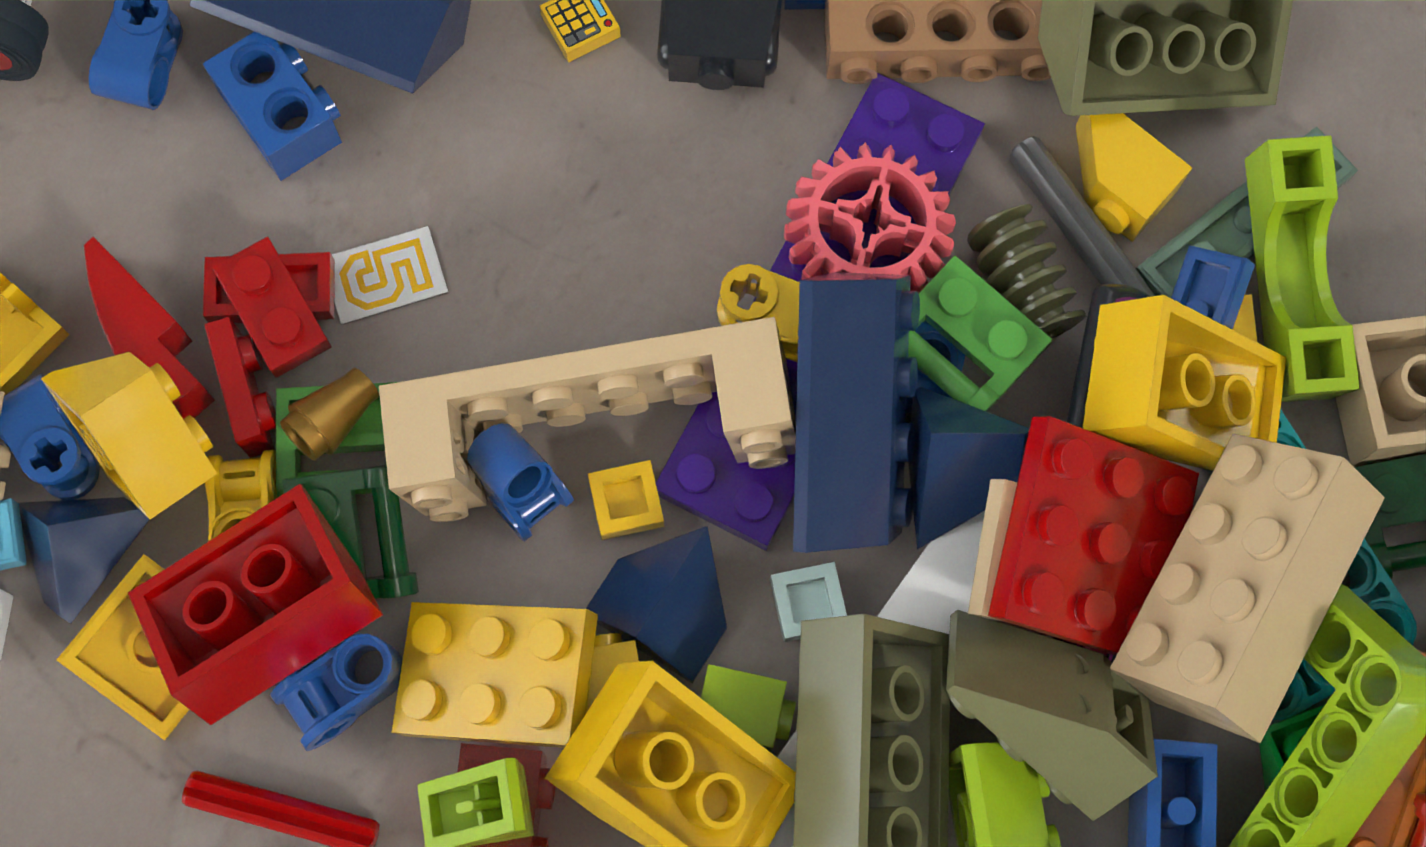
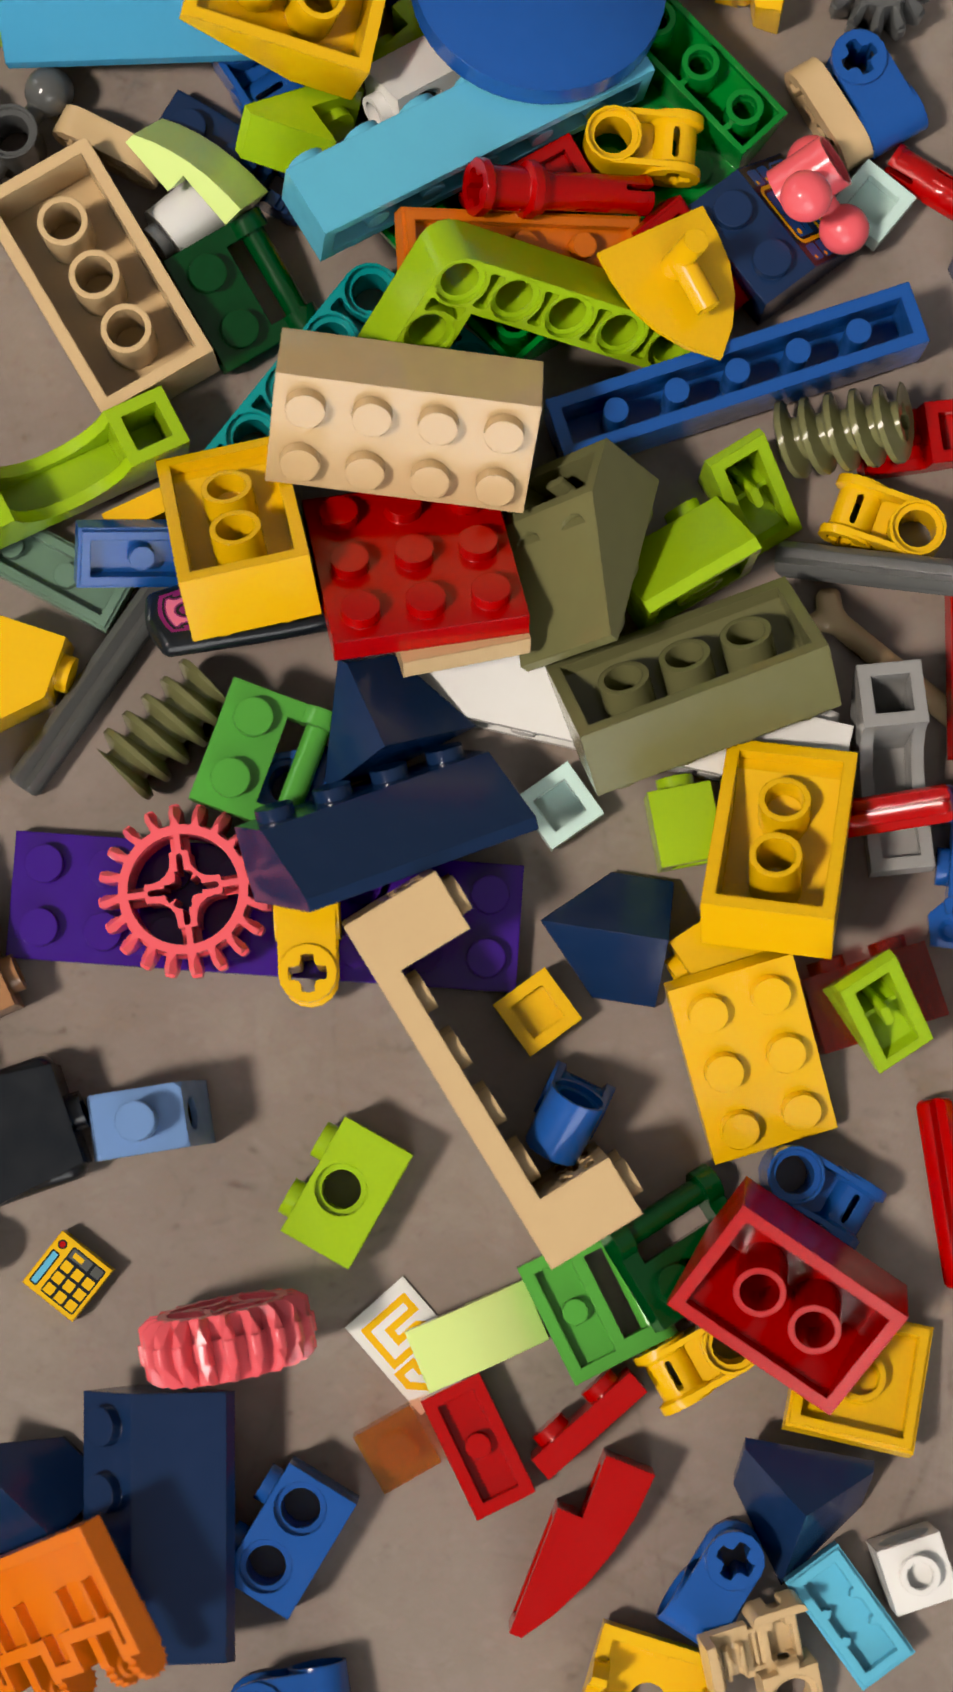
camera: 110 degrees left, 10 degrees up
(134, 428) = (682, 1485): yellow slope -> none
(271, 307) = (501, 1427): red plate -> none
(303, 221) = (397, 1447): none -> clear orange plate
(326, 416) = (583, 1316): pearl gold cone -> none
(363, 318) = (476, 1336): none -> yellowish green slope
(458, 102) = (227, 1338): none -> coral gear
(551, 300) = (343, 1230): none -> lime brick
(681, 115) = (150, 1119): none -> medium blue torso

